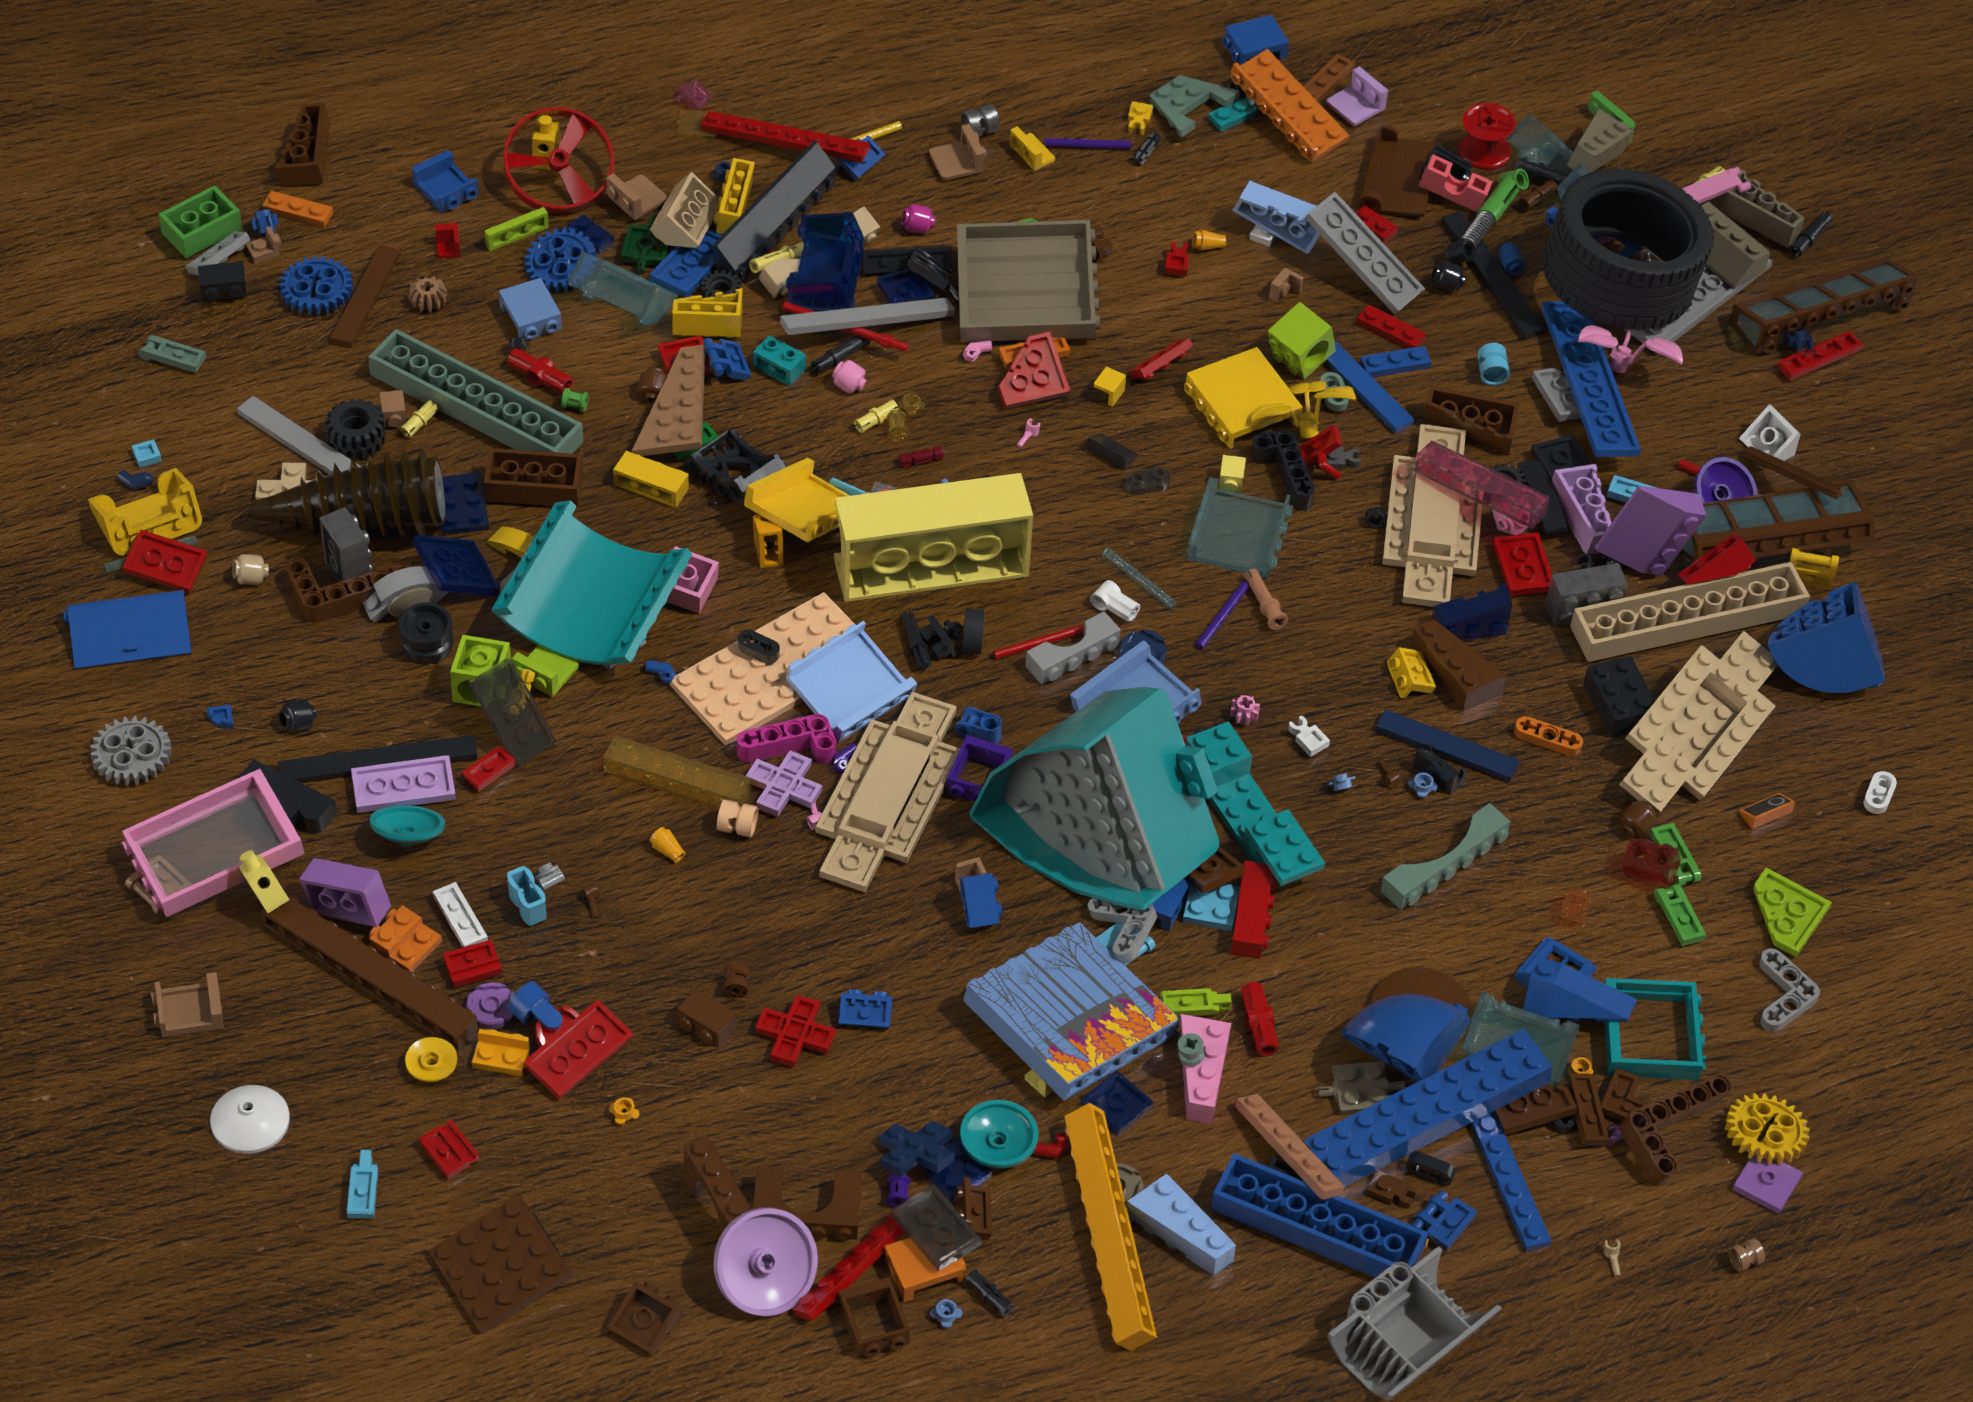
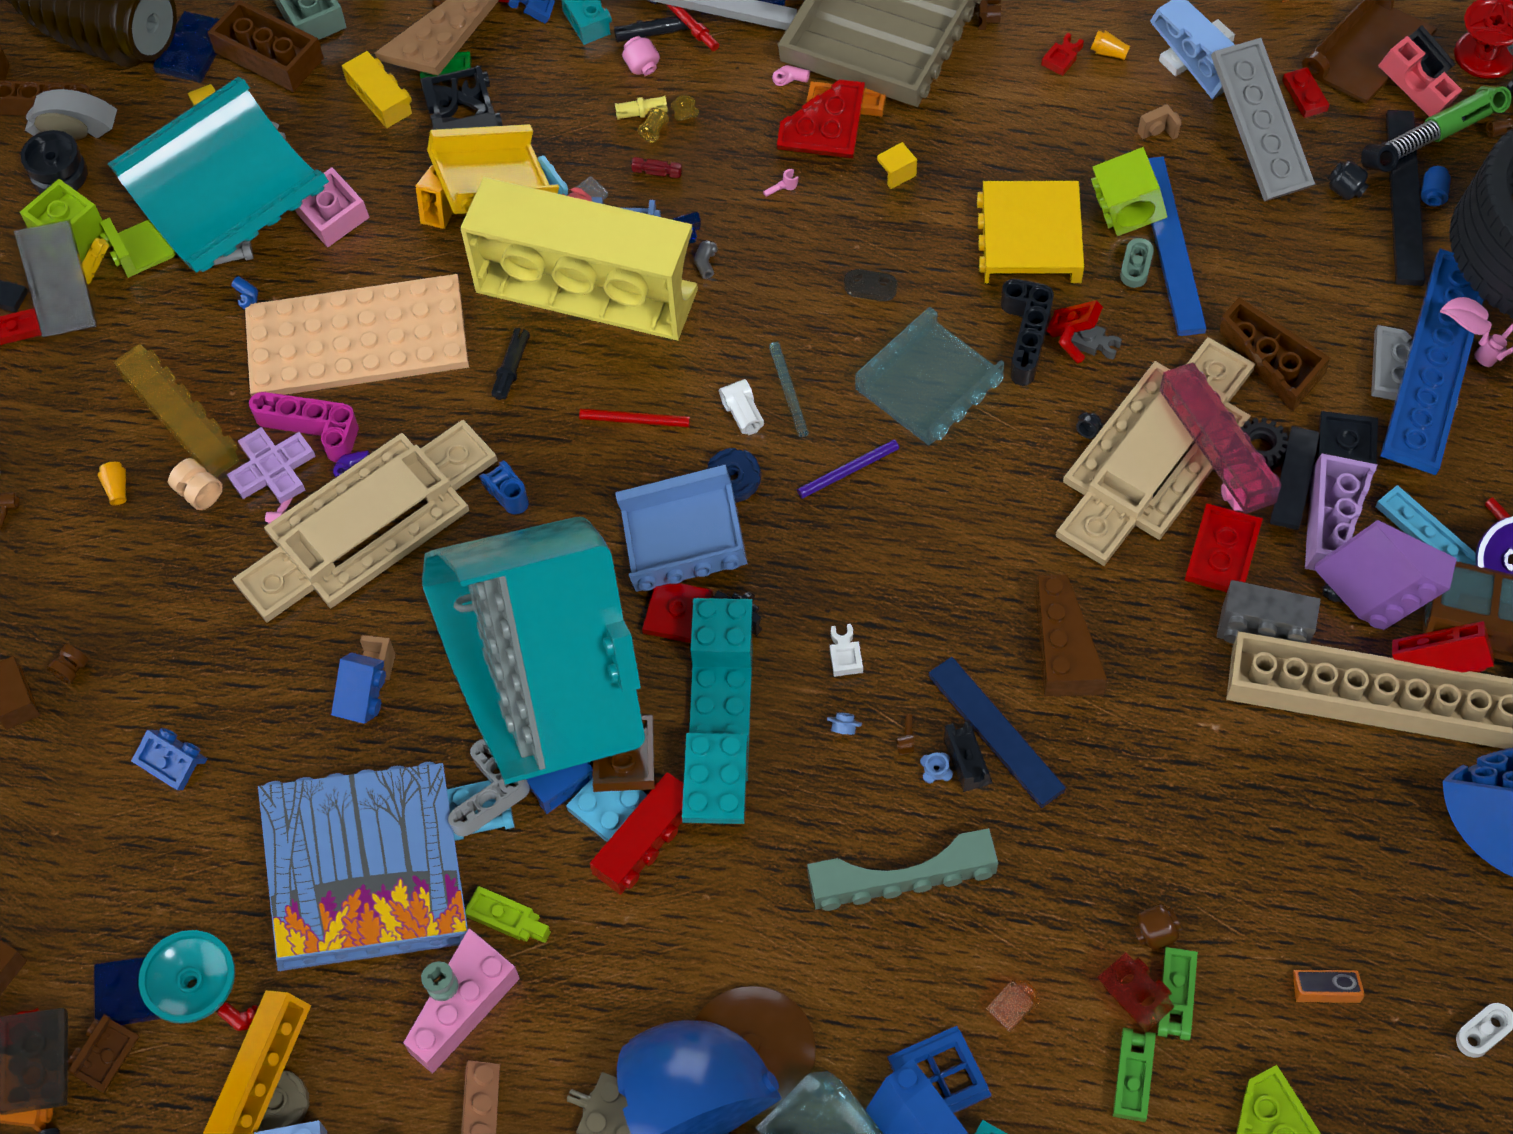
camera: 35 degrees right, 10 degrees up
(345, 545) = (32, 45): flat silver brick -> none
(456, 565) = (125, 103): clear blue plate -> none
(758, 647) = (341, 309): black beam -> none
(795, 1030) = (84, 749): red plate -> none
(849, 681) = (407, 381): light blue panel -> none
(897, 1191) = (48, 989): dark purple bush -> none
(916, 1148) = (96, 949): dark blue plate -> none
(945, 645) = (541, 370): black hips -> none
(973, 631) = (566, 378): black tyre -> none
(974, 749) = (460, 517): dark purple window -> none
(1051, 661) = (630, 447): light grey arch -> none
(1111, 450) = (855, 235): black slope -> none
(1120, 1101) = (347, 997): clear blue tile -> none
(1161, 359) = (972, 157): red plate -> none
(1232, 473) = (962, 312): light yellow brick -> none
(1244, 710) = (796, 597): bright pink gear -> none
(1259, 1019) = (562, 972): red piece -> none
(1268, 606) = (903, 479): nougat pin -> none
(1307, 421) = (1082, 284): yellow plant -> none
(1390, 328) = (1249, 215): red plate -> none
(1396, 362) = (1230, 255): blue plate -> none
(1410, 672) = (1009, 624): yellow bracket -> none
(1477, 616) = (1119, 590): clear blue wedge -> none
(1493, 364) = (1336, 299): medium azure wheel -> none
(1554, 744) = (1141, 783): orange beam -> none
(1588, 561) = (1301, 571): black hand -> none
(1618, 694) = (1234, 762): black brick -> none
(1693, 716) = (1299, 829): tan piece -> none

